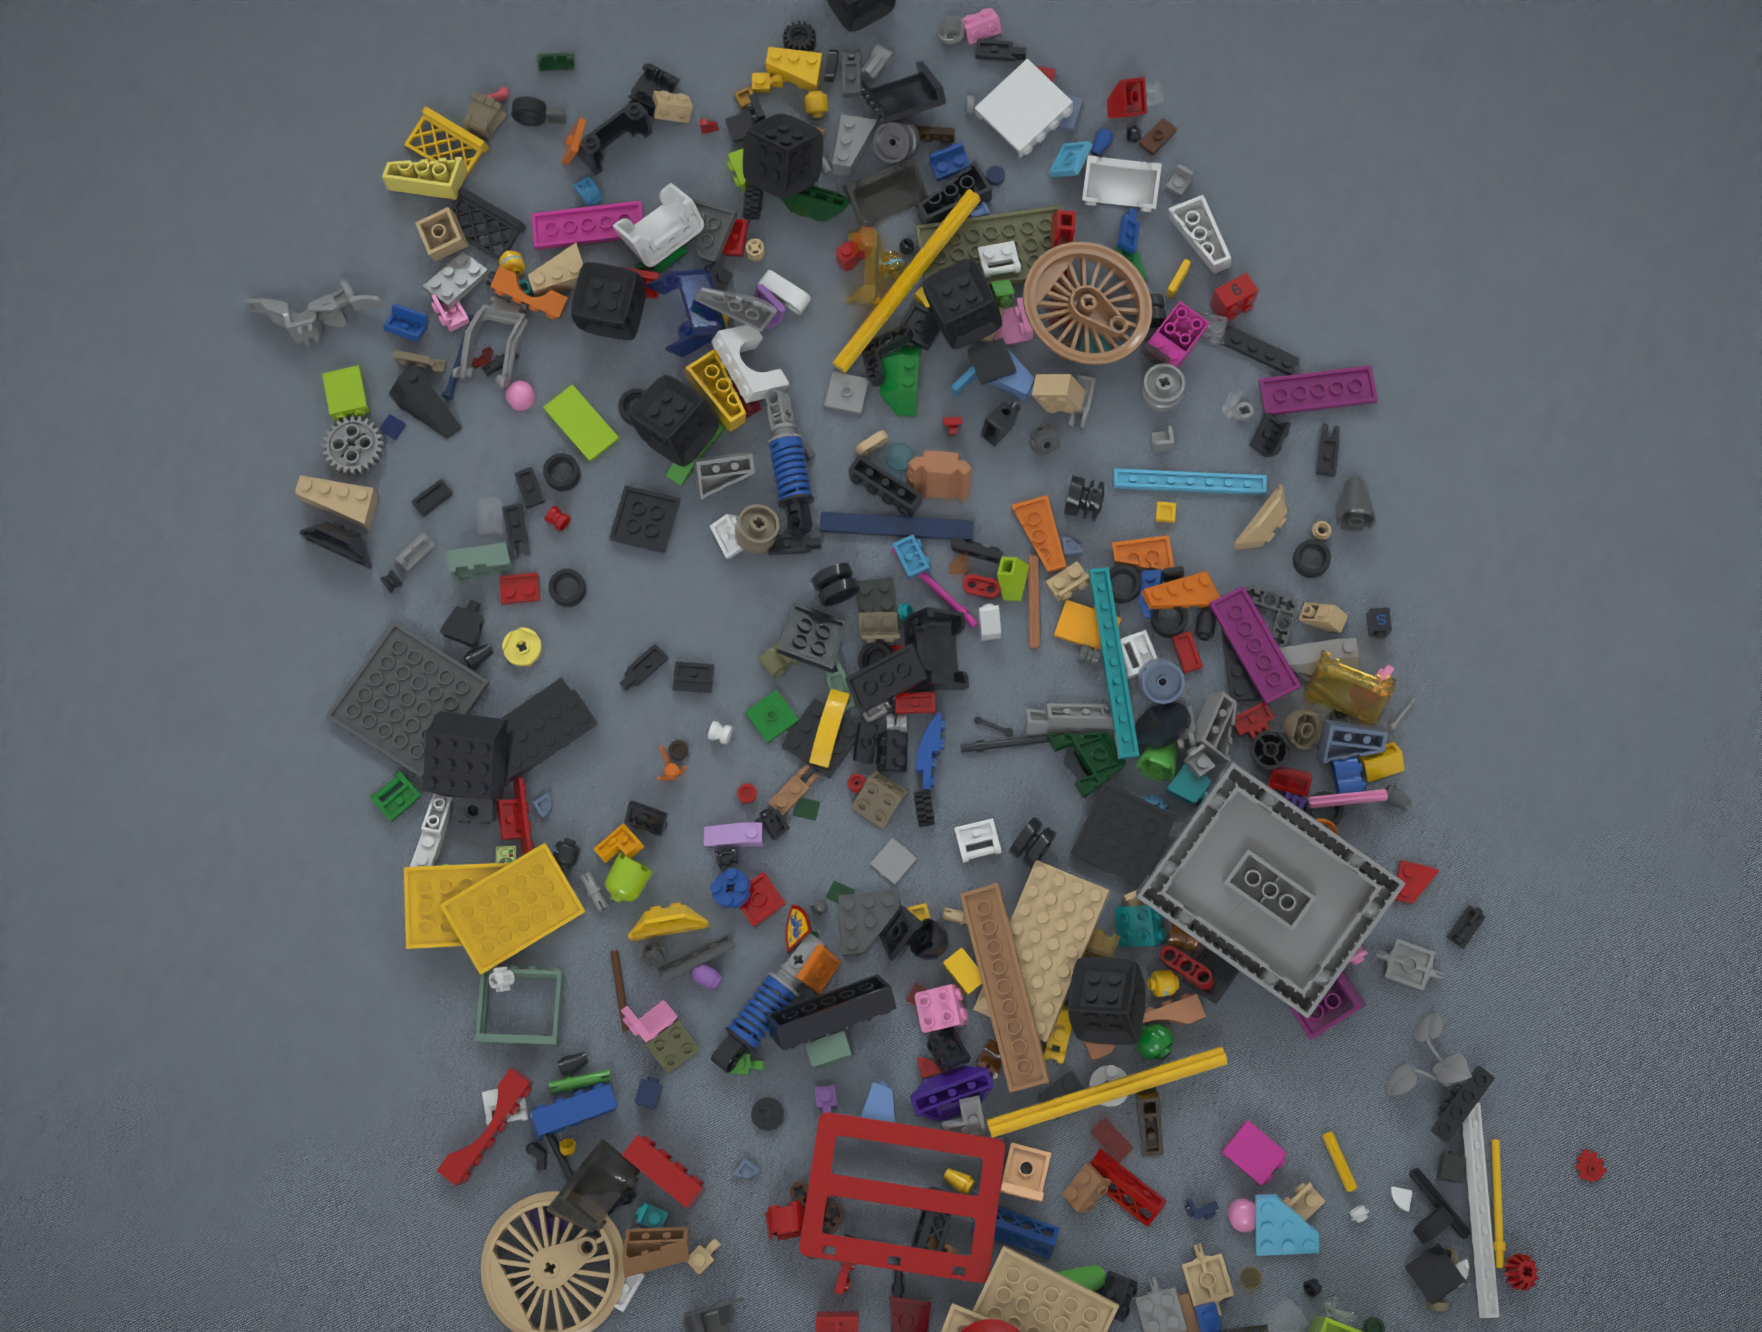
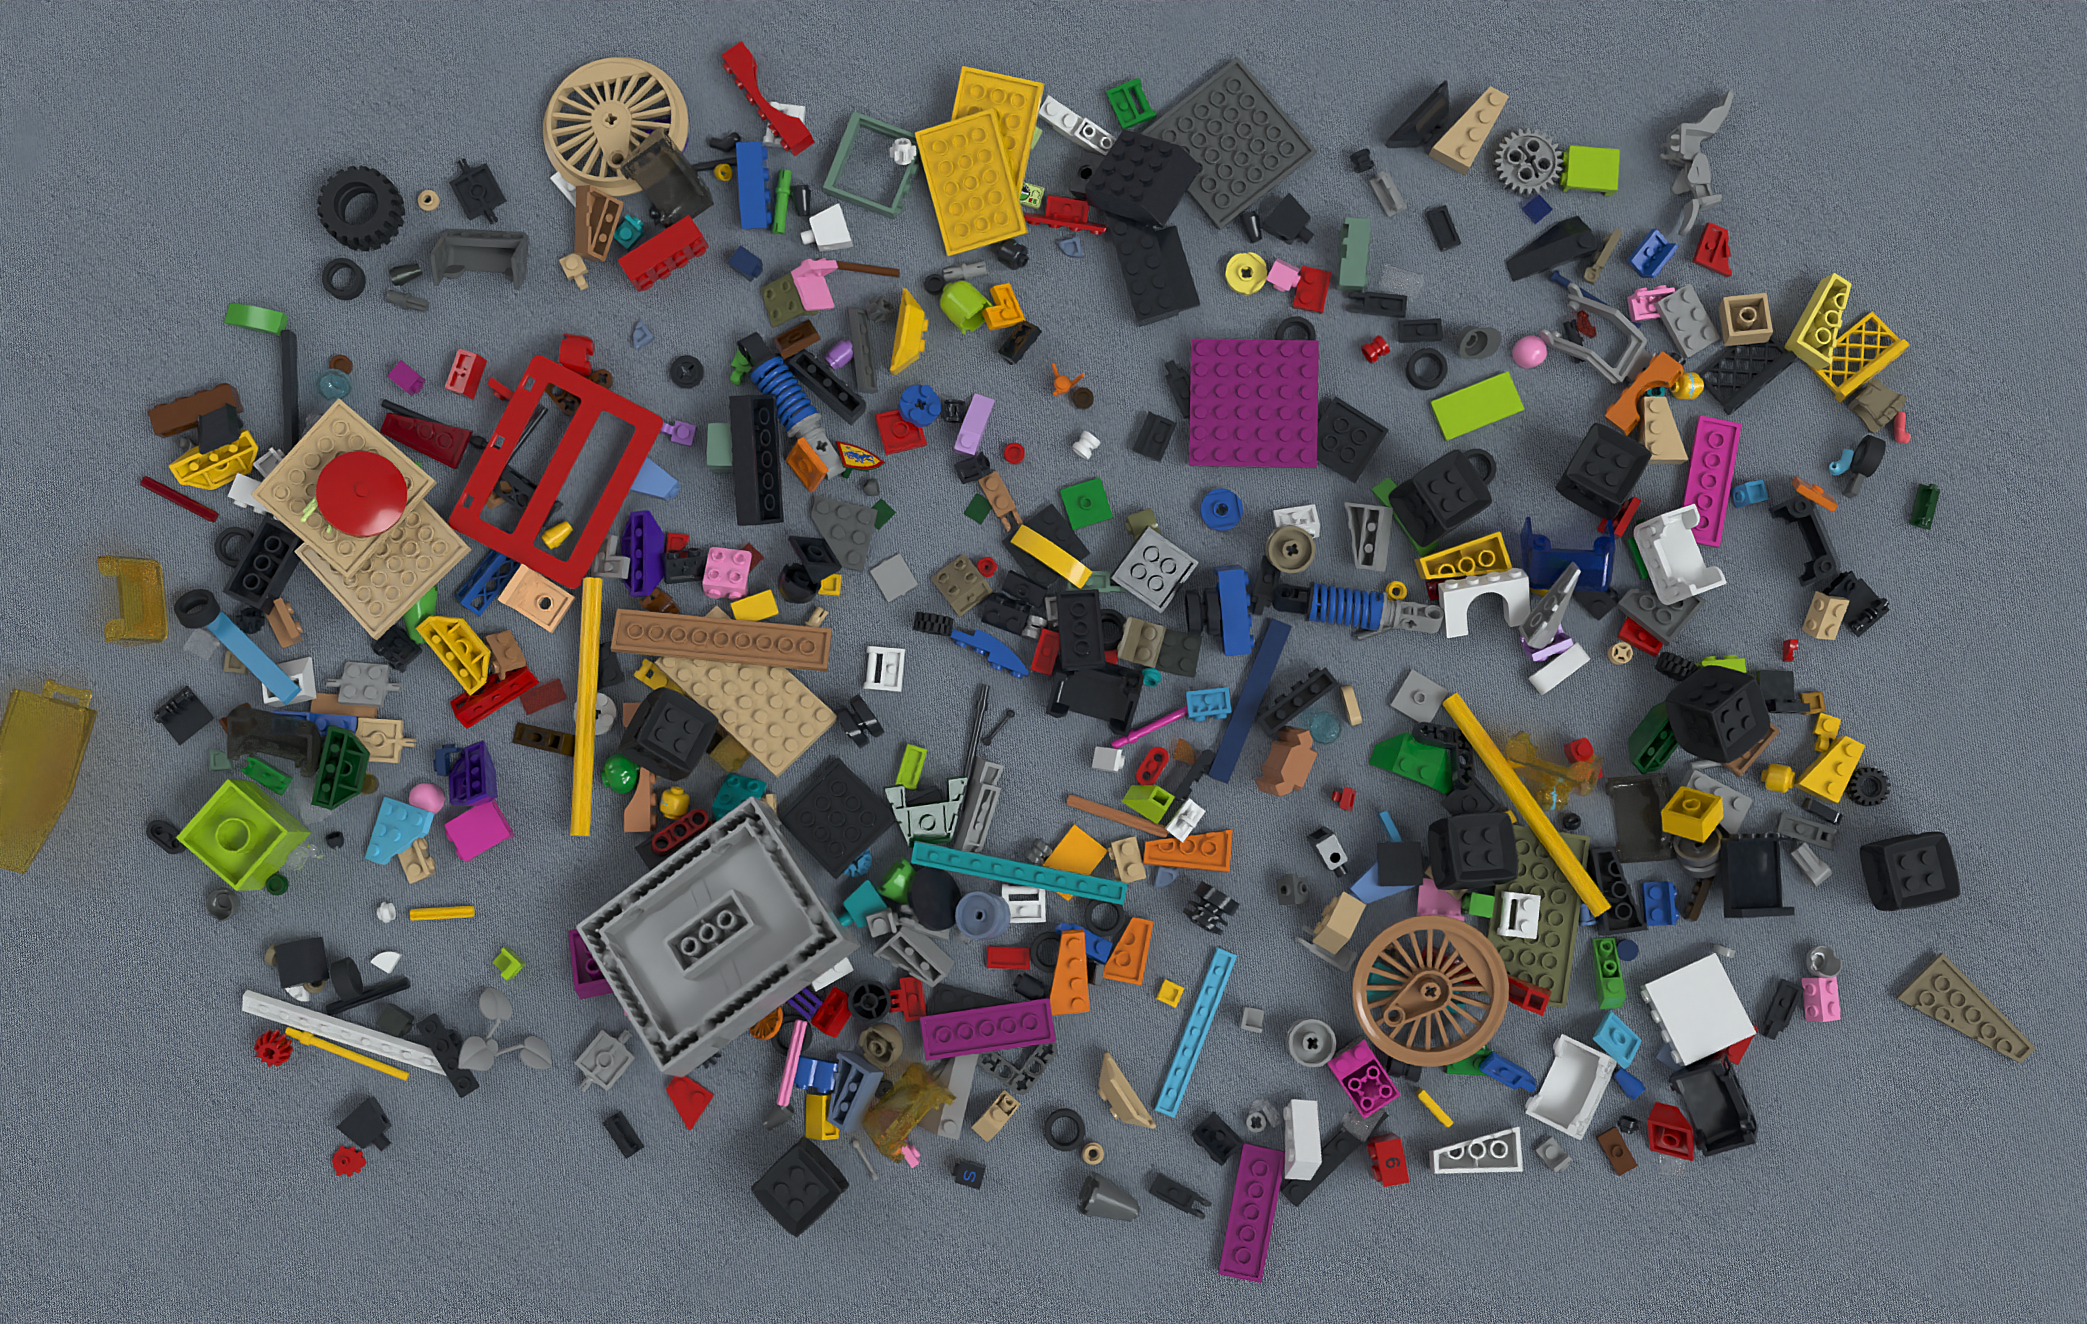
camera: 105 degrees right, 10 degrees up
(387, 278) = (1713, 250): none -> red wing
(515, 613) = (1283, 275): none -> bright pink brick
(525, 438) = (1477, 342): none -> dark grey piece
(541, 130) = (1842, 465): none -> medium azure arm
(594, 1027) = (828, 230): none -> white torso
(615, 915) = (934, 284): none -> black plate
(637, 602) = (1253, 403): none -> magenta plate
(706, 1019) = (796, 339): none -> reddish brown plate
(740, 976) = (827, 386): none -> black brick
(741, 590) = (1228, 500): none -> blue plate
(761, 433) = (1400, 586): none -> yellow plate
(802, 567) = (1233, 610): none -> blue wedge
(870, 152) = (1692, 814): none -> yellow brick
(1017, 544) = (1185, 820): none -> white hips
(1021, 182) = (1608, 974): none -> bright green slope
(1055, 787) = (911, 767): none -> lime plate
(1094, 73) = (1716, 1104): none -> black windscreen
(1098, 1229) = (458, 649): none -> yellow wedge
(1210, 1174) = (473, 777): none -> dark purple wedge
(1244, 367) = (1302, 1140): none -> white wedge
(1248, 1302) = (340, 769): none -> dark green wedge
(1360, 1083) = (509, 963): none -> lime panel
(1448, 752) = (800, 1187): none -> black piece
(1552, 1159) = (367, 1125): none -> black torso

